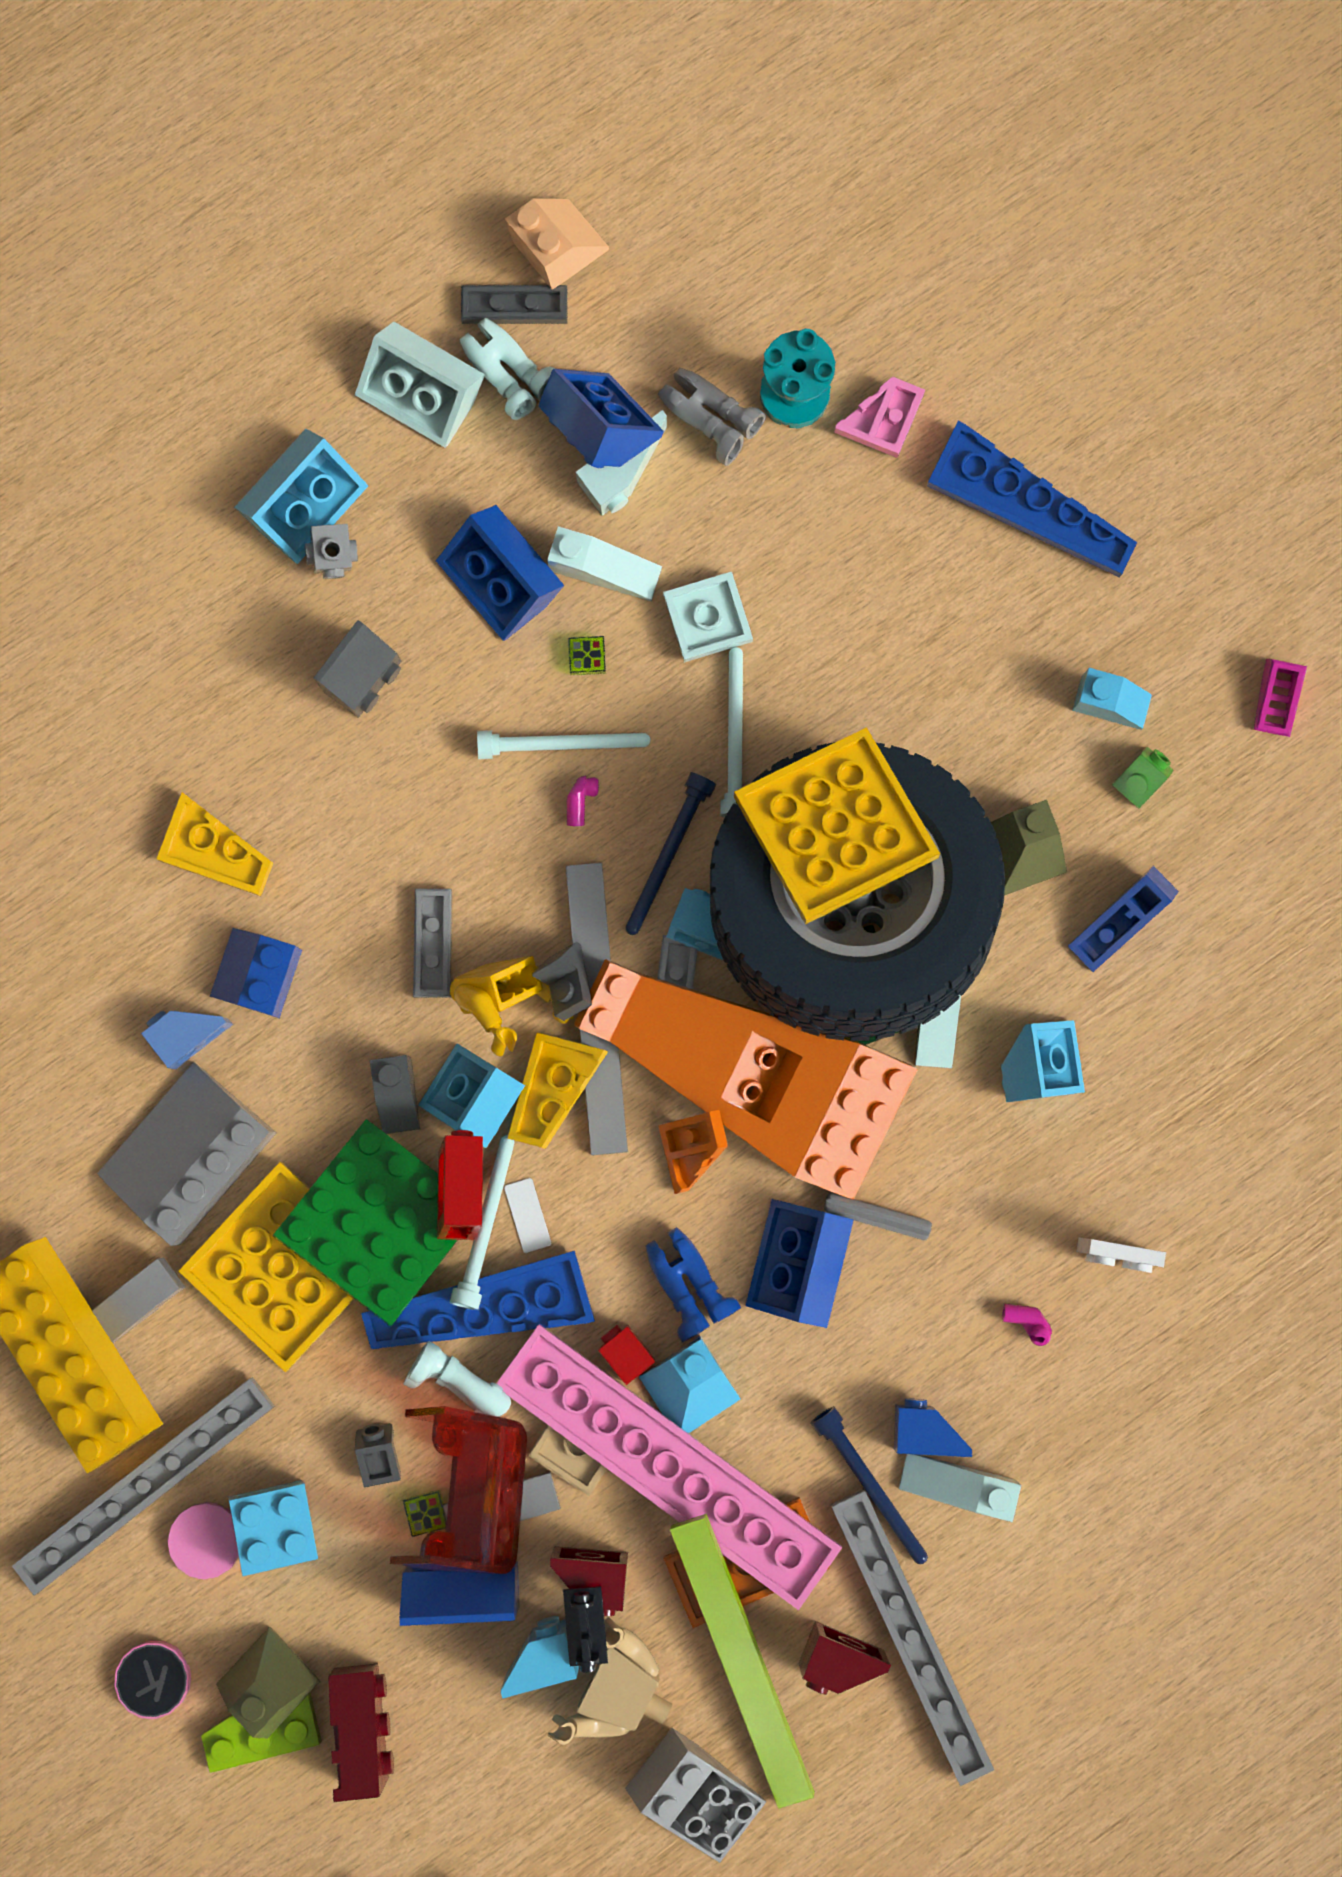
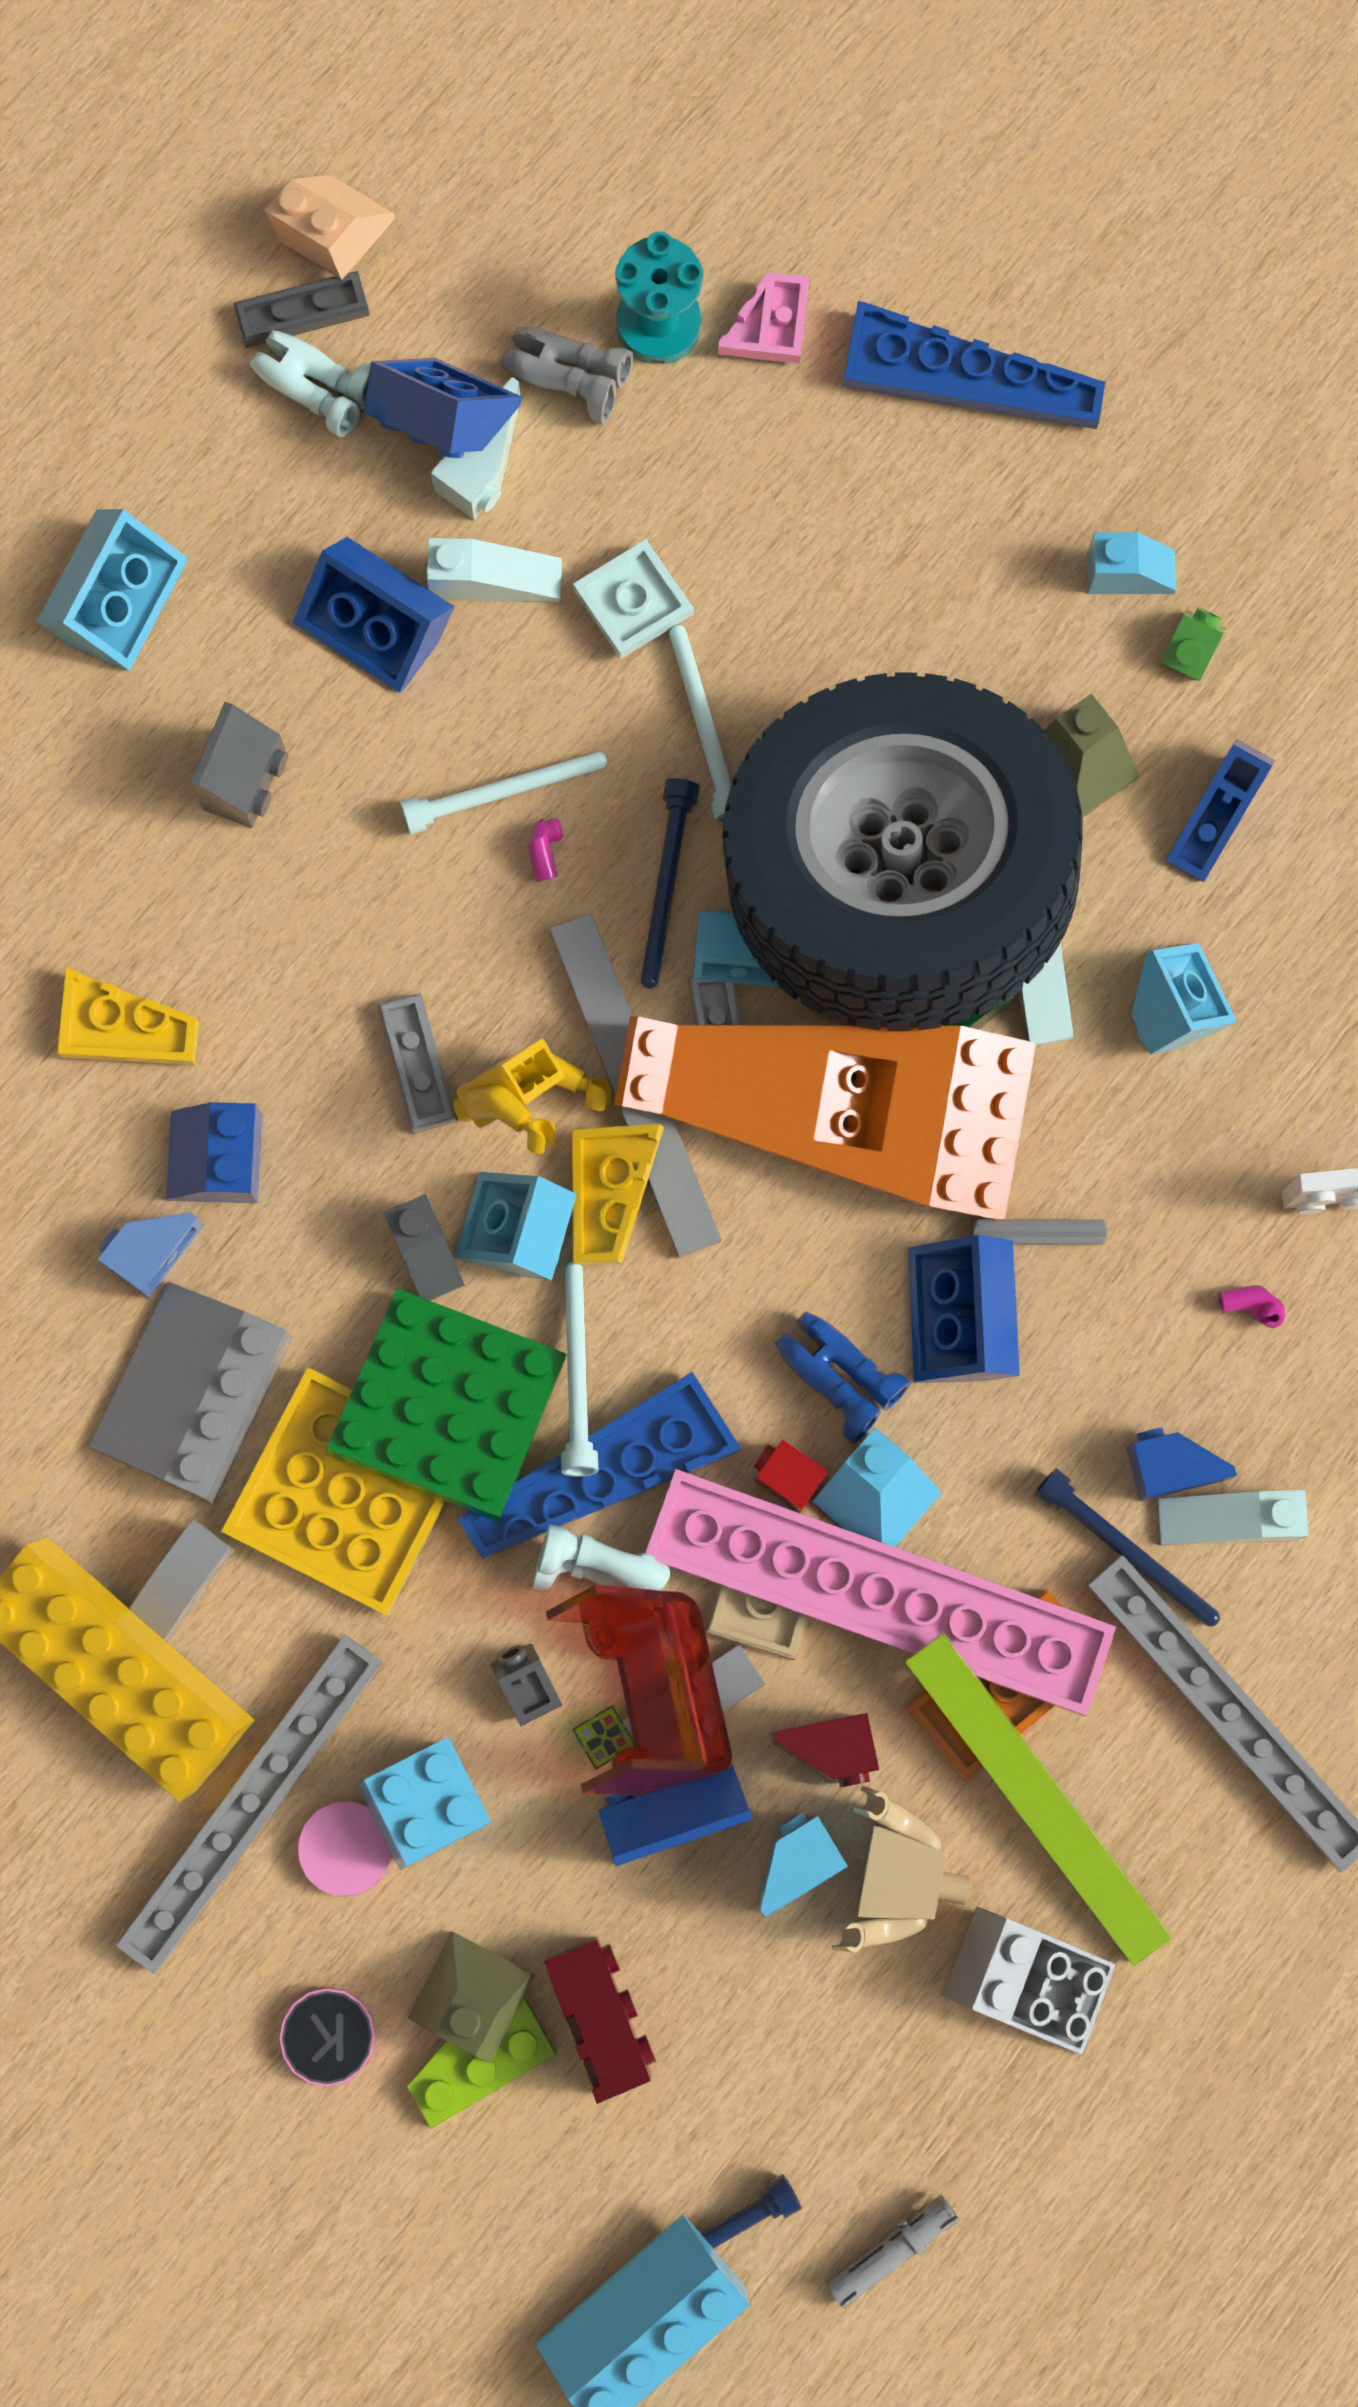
camera: 20 degrees left, 5 degrees down
(333, 537) = (166, 639): light grey brick -> none
(418, 383) = (215, 425): light aqua slope -> none
(460, 1186) = (535, 1327): red window -> none
(527, 1215) = (623, 1350): white sticker -> none
(567, 981) = (591, 1057): dark grey slope -> none
(585, 1627) = (840, 1800): black hinge -> none
(587, 655) = (503, 682): tile -> none
(692, 1147) = (797, 1209): orange wing -> none
(836, 825) = (860, 773): yellow plate -> none
(839, 1660) = (1151, 1762): dark red slope -> none
(1268, 681) = (1302, 485): dark pink slope -> none

